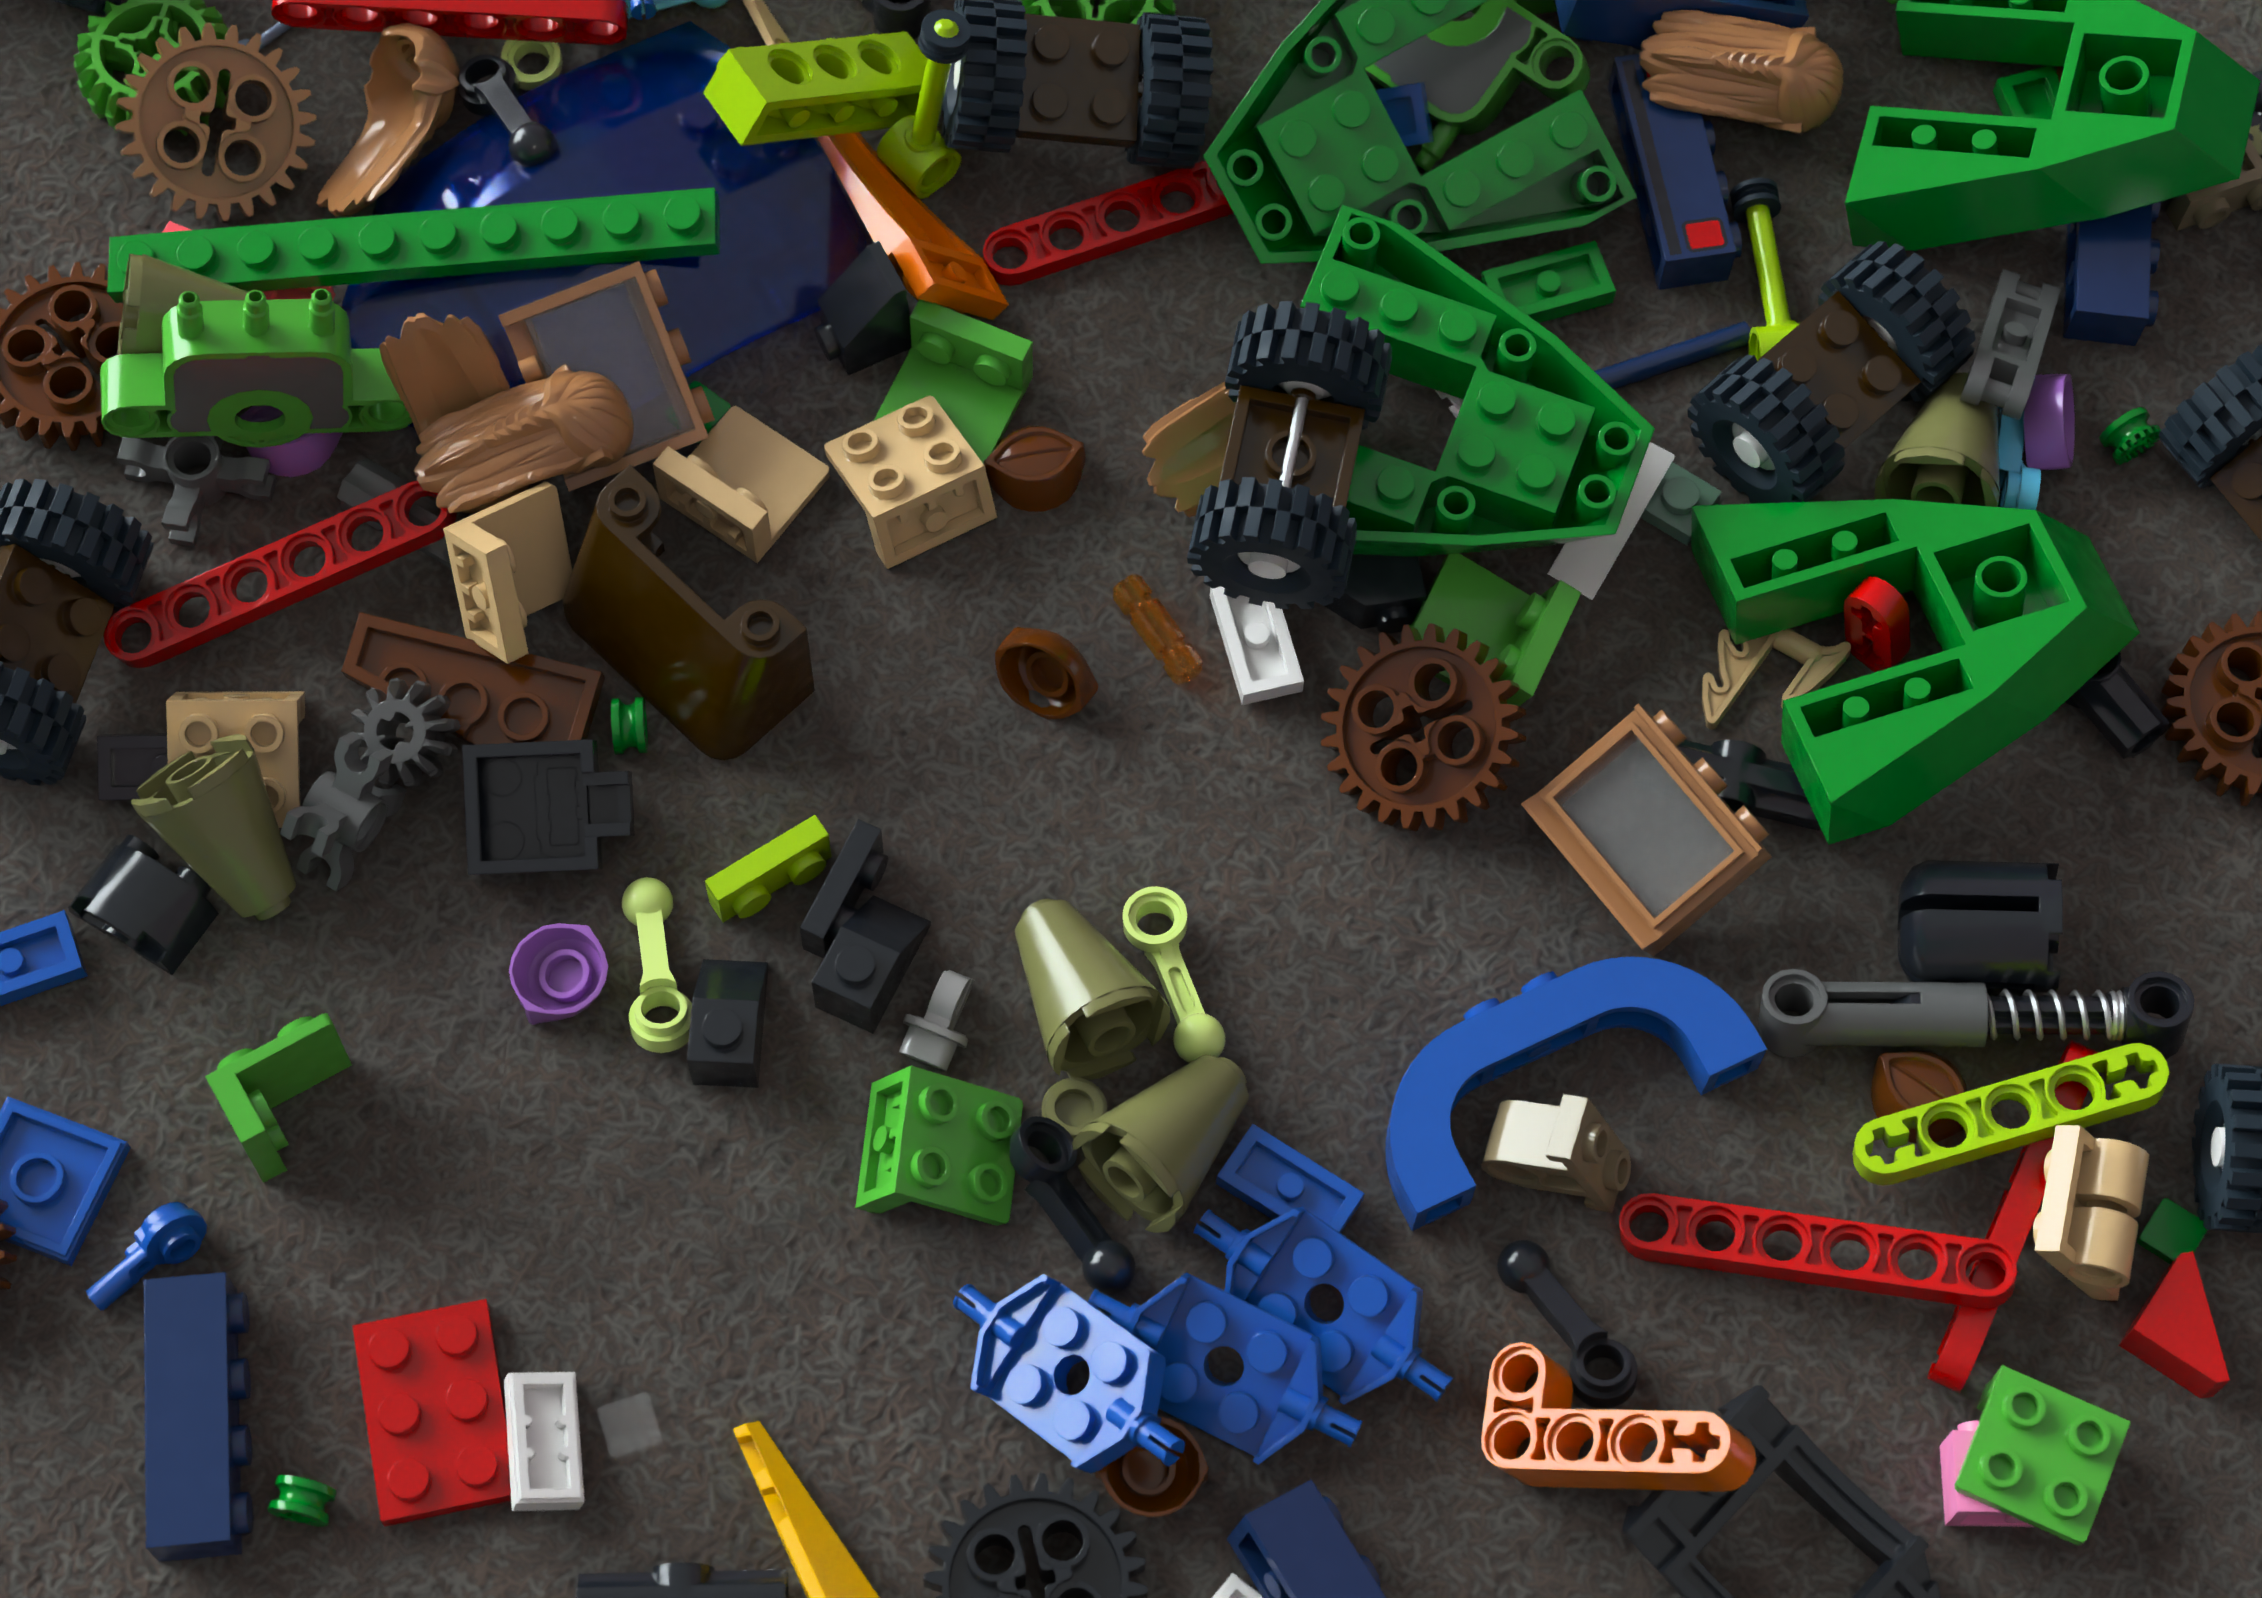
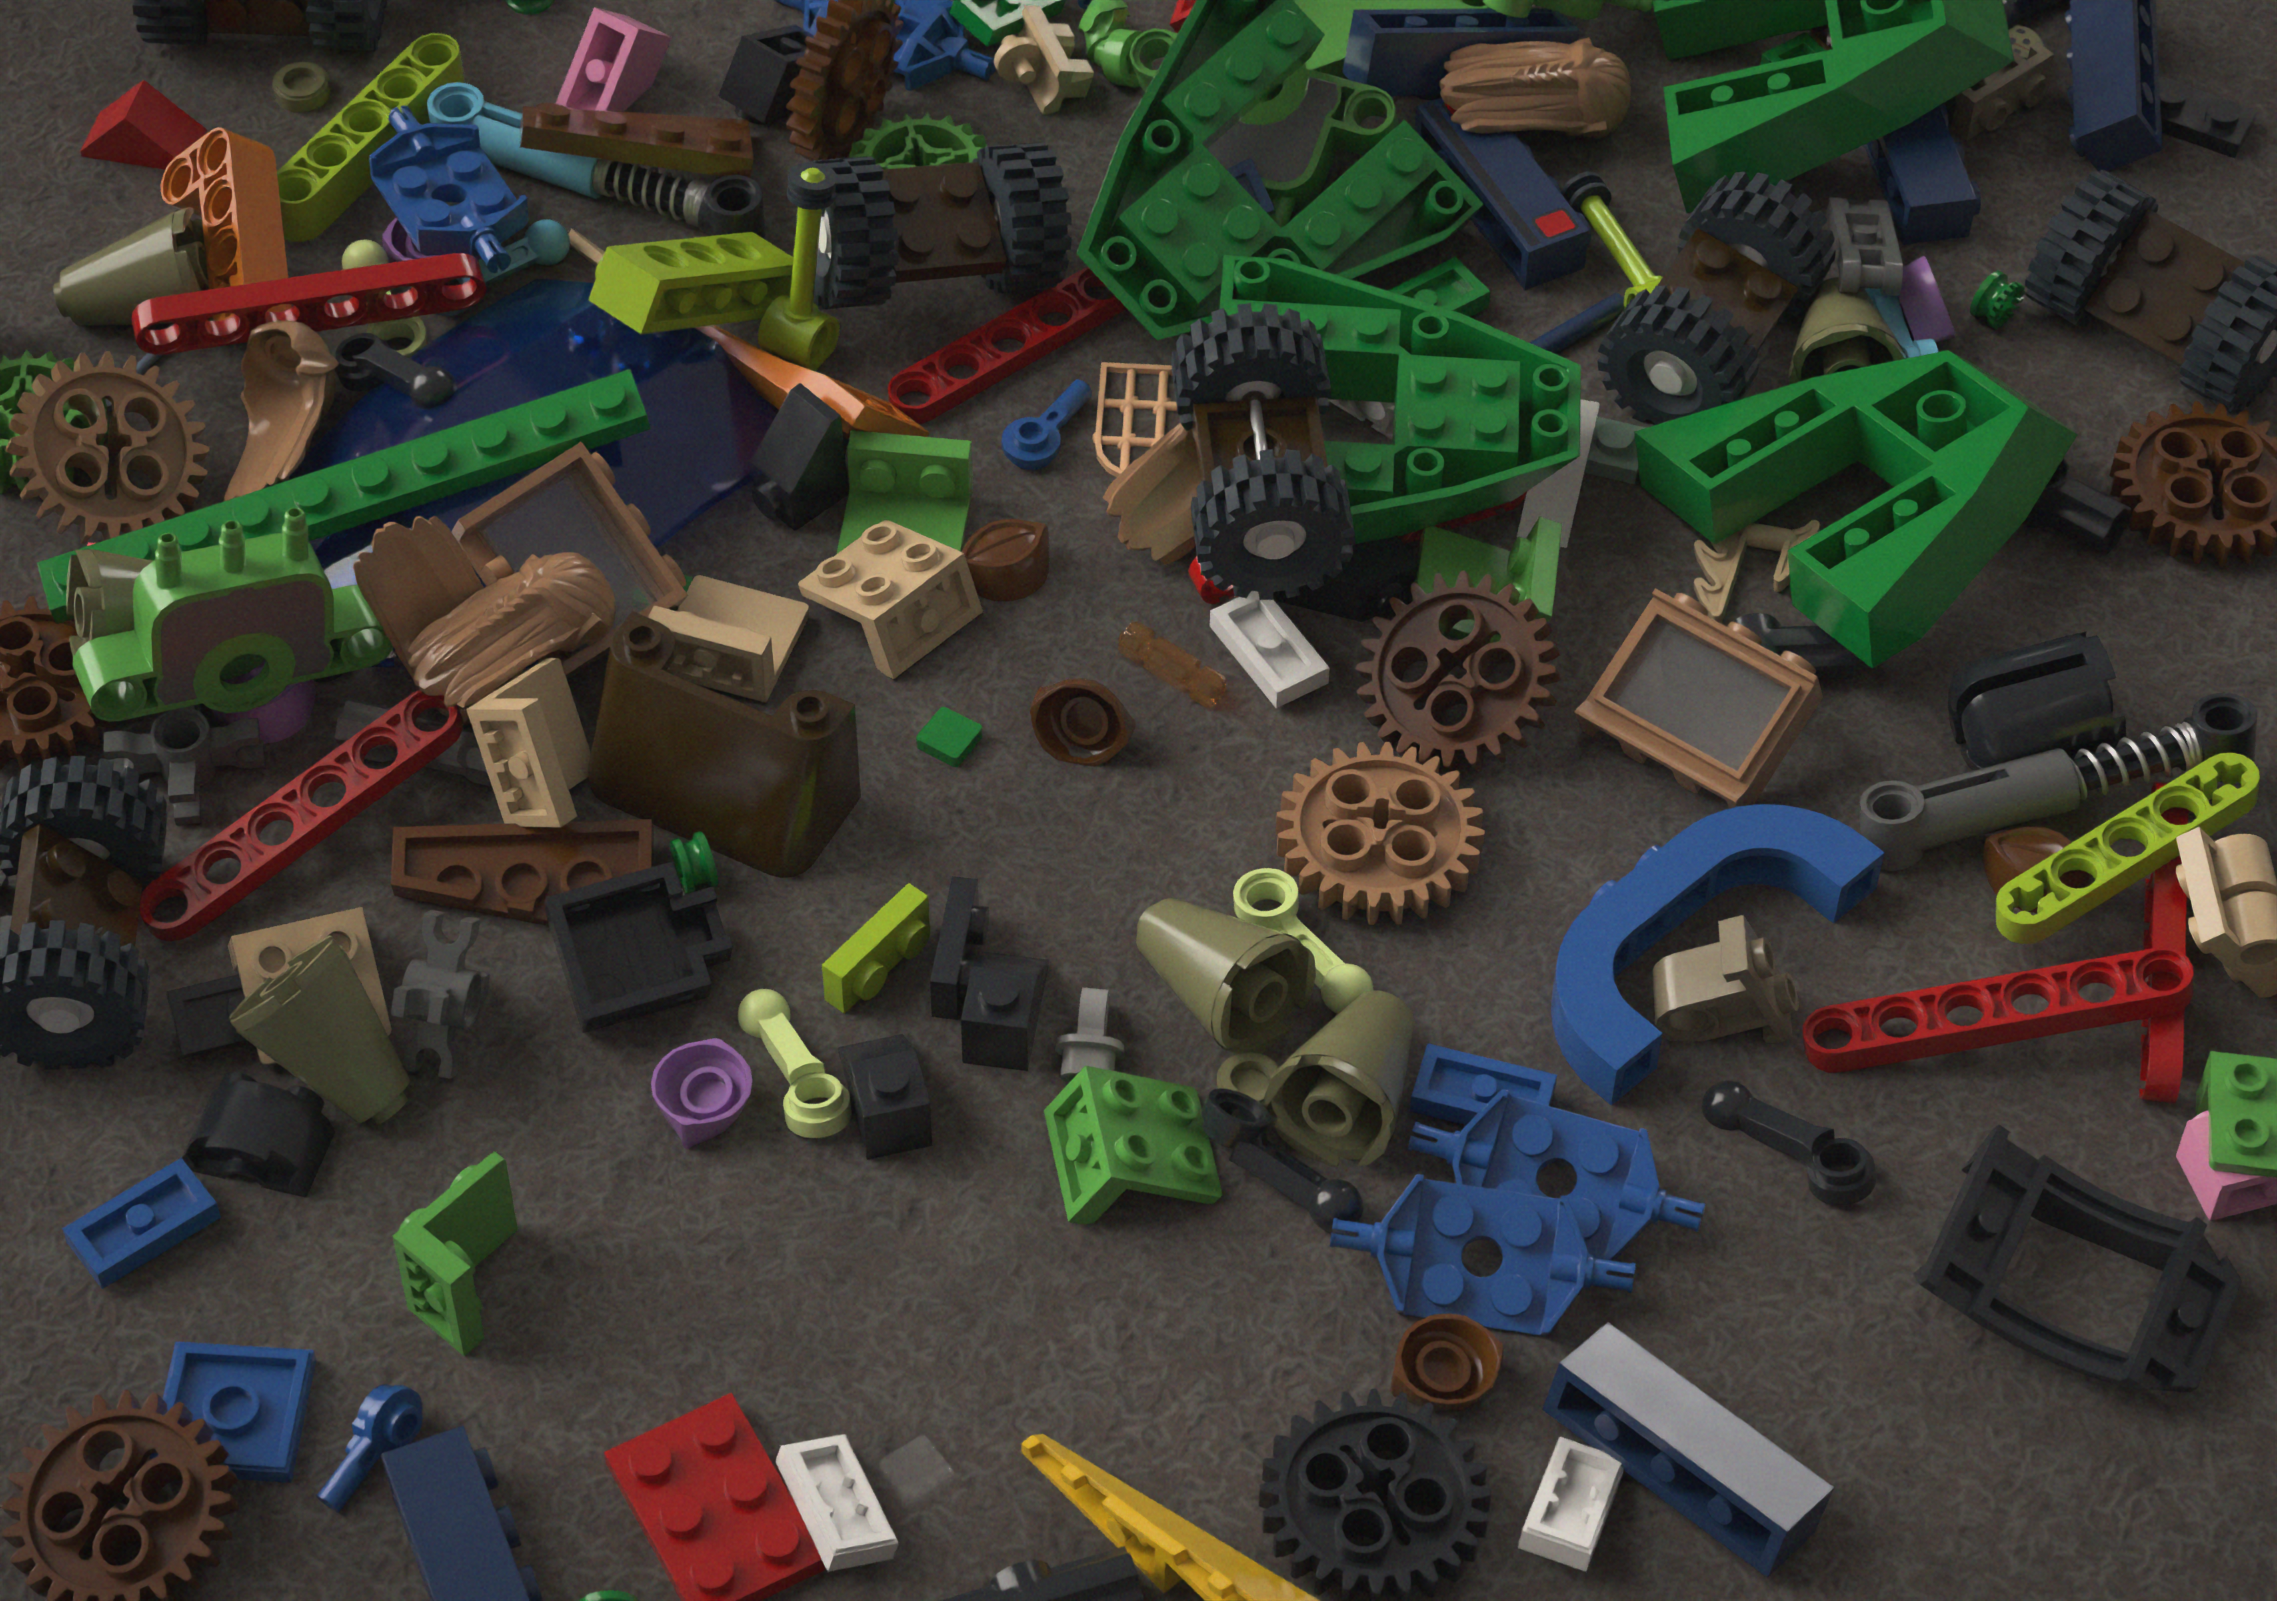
camera: 15 degrees left, 15 degrees down
(417, 711) = (498, 898): dark grey gear -> none
(918, 649) = (949, 736): none -> green piece
(1024, 1366) = (1298, 1269): plate -> none
(1109, 338) = (1036, 440): none -> blue plate
(1215, 321) = (1127, 406): none -> light nougat window
(1267, 924) = (1375, 821): none -> medium nougat gear
(1618, 1436) = (1967, 1183): orange beam -> none
(1877, 624) = (1825, 490): red beam -> none

